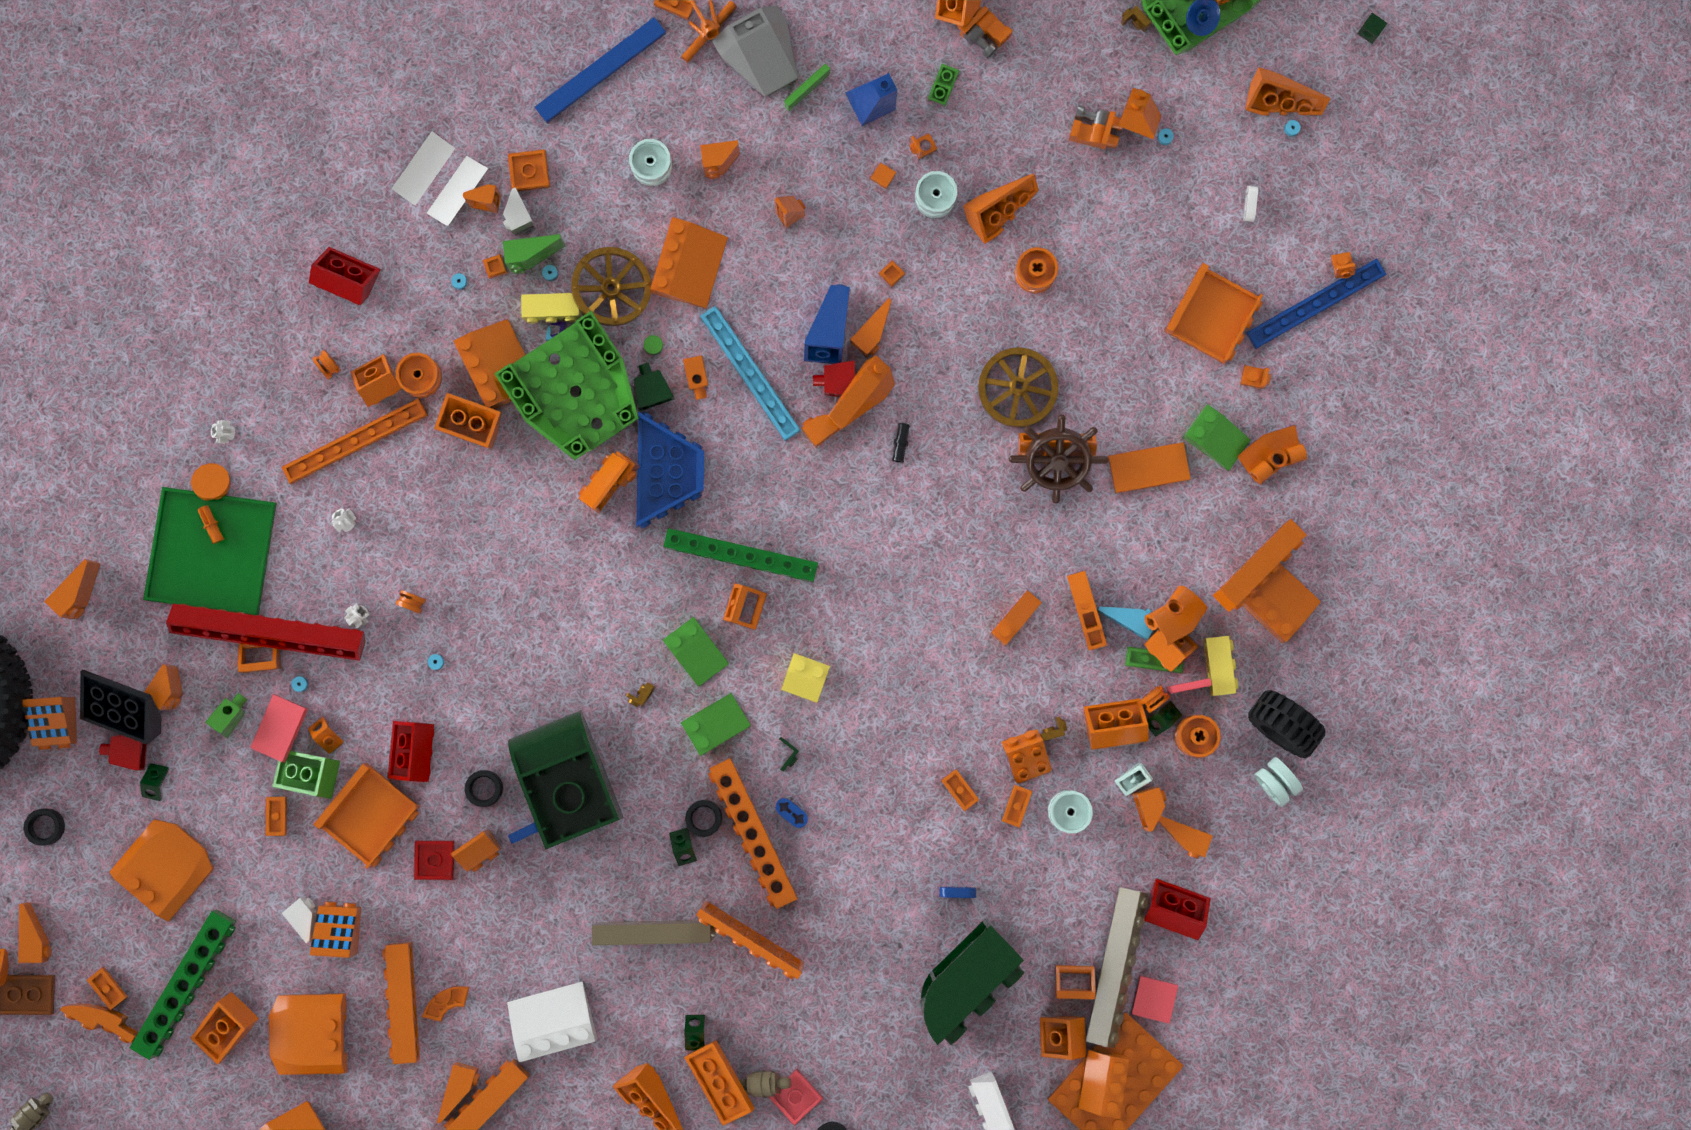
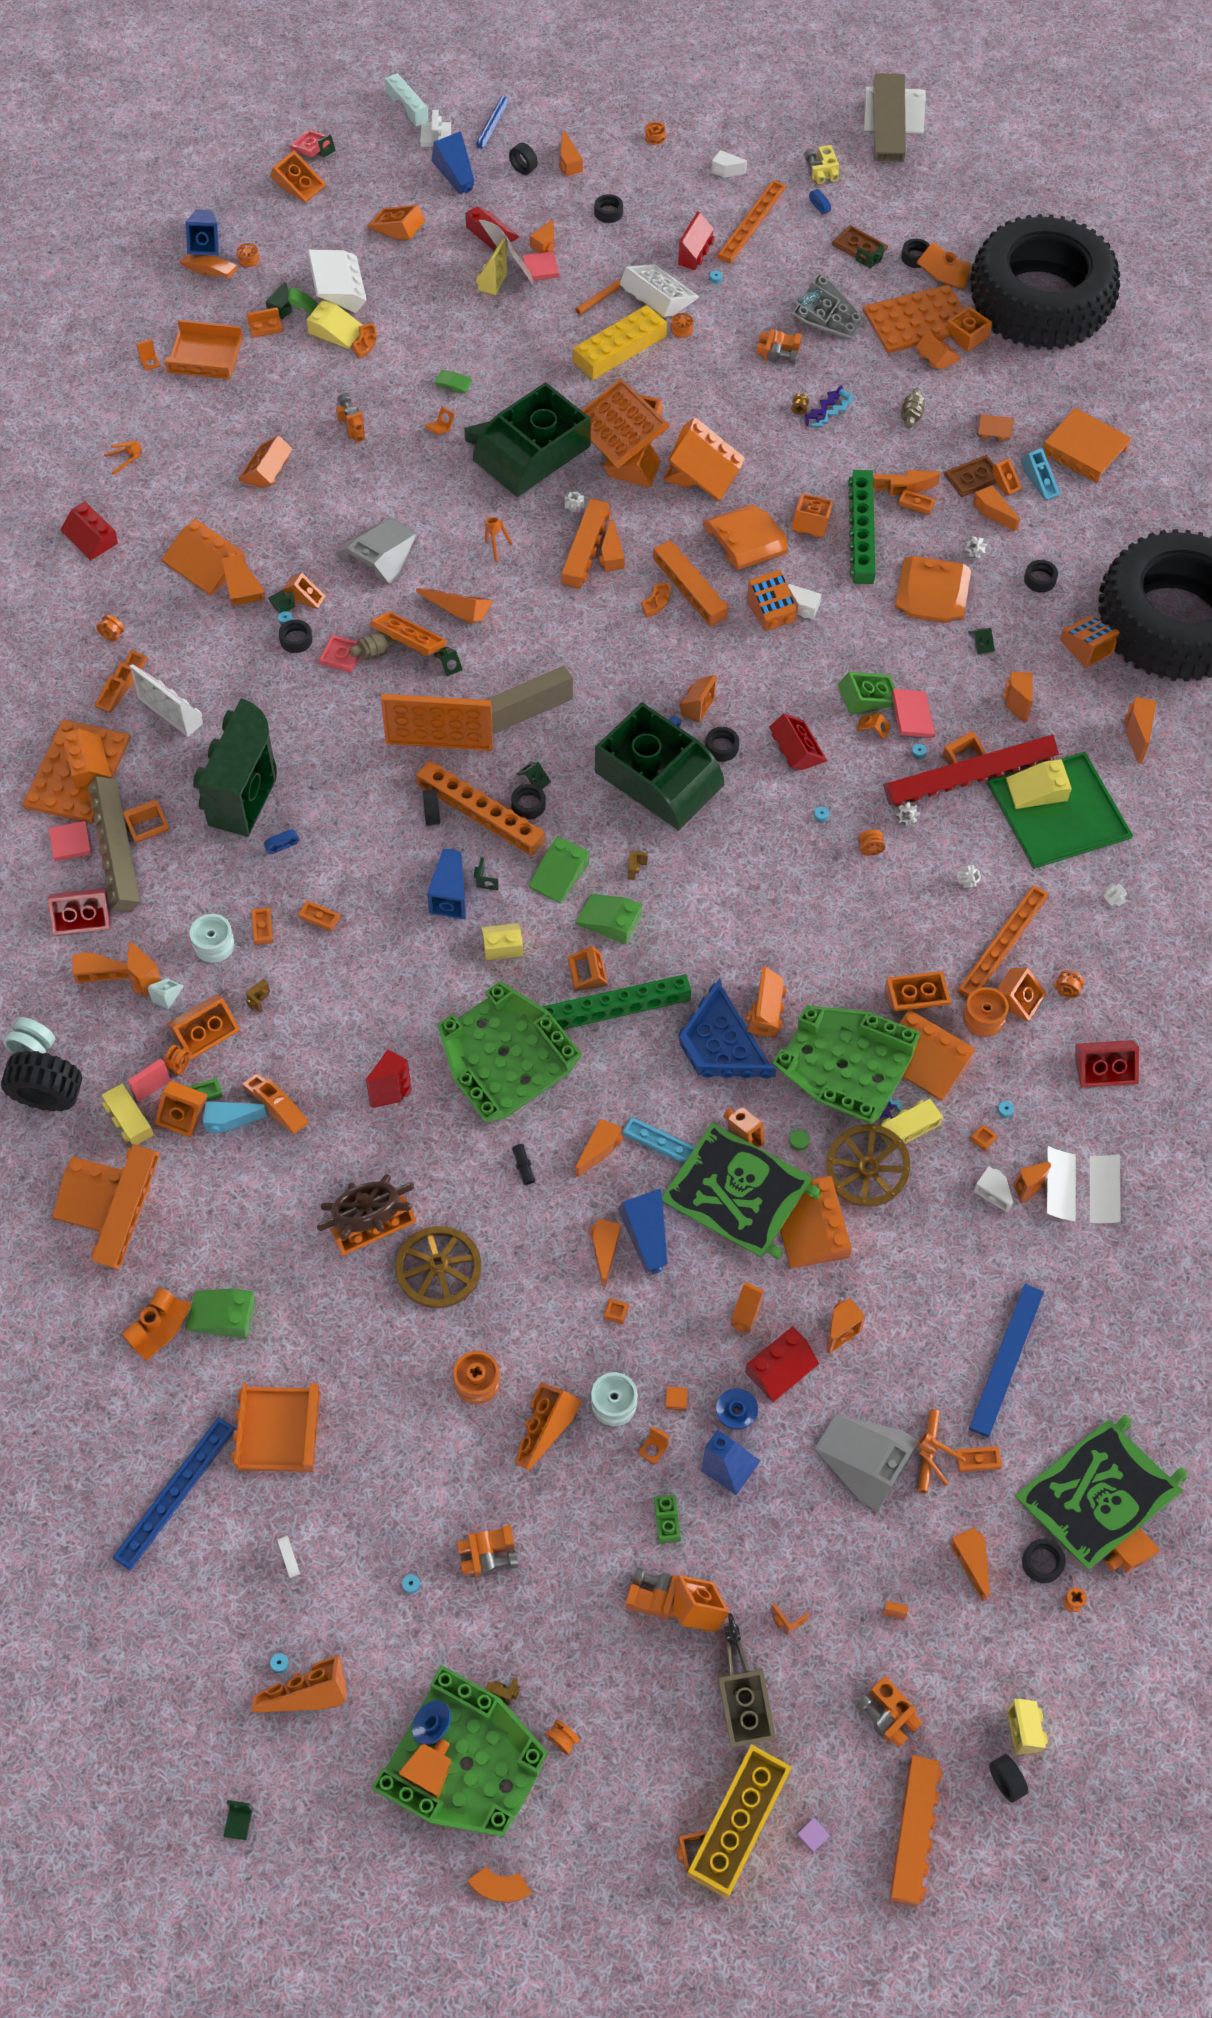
camera: 155 degrees right, 25 degrees down
(86, 895) = (975, 547): none -> white gear
(118, 708) = (1042, 661): black slope -> none
(125, 752) = (1017, 647): red torso -> none
(210, 481) = (1097, 855): orange tile -> none
(210, 524) = (1072, 823): orange axle -> none
(214, 581) = (1039, 785): none -> light yellow slope
(222, 721) = (958, 698): bright green torso -> none
(276, 816) = (872, 657): orange plate -> none
(368, 815) = (800, 688): orange panel -> none
(433, 860) = (731, 683): red tile -> none
(528, 170) = (1010, 1235): orange tile -> none
(528, 252) = (964, 1153): bright green slope -> none
(550, 277) = (931, 1155): medium azure piece -> none
(551, 1021) = (565, 618): white slope -> none
(648, 151) = (903, 1291): light aqua wheel -> none
(651, 388) = (777, 1100): dark green torso -> none
(734, 319) = (738, 1190): none -> flag
(784, 158) = (782, 1364): none -> red slope
(788, 816) = (456, 838): blue beam -> none
(800, 853) = (431, 807): none -> black tyre
(807, 87) = (801, 1438): bright green tile -> none
(826, 758) = (446, 889): none -> blue slope
(835, 378) = (612, 1188): red torso -> none
(842, 130) = (738, 1399): none -> blue dish
(864, 392) = (581, 1184): orange wedge -> none
(888, 539) = (535, 1047): none -> bright green wedge
(980, 571) = (389, 1080): none -> red slope
(1015, 618) = (338, 1067): orange slope -> none
(1027, 756) = (275, 966): orange bracket -> none
(1063, 1037) = (137, 779): orange slope -> none
(1140, 114) = (446, 1584): orange slope -> none
(1149, 467) = (274, 1256): orange tile -> none
(1165, 717) = (158, 1049): dark green bracket -> none
(1178, 615) = (177, 1141): orange panel -> none
(1208, 736) = (122, 1047): orange wheel -> none
(1255, 377) = (206, 1388): orange bracket -> none
(1343, 265) = (162, 1541): orange bracket -> none

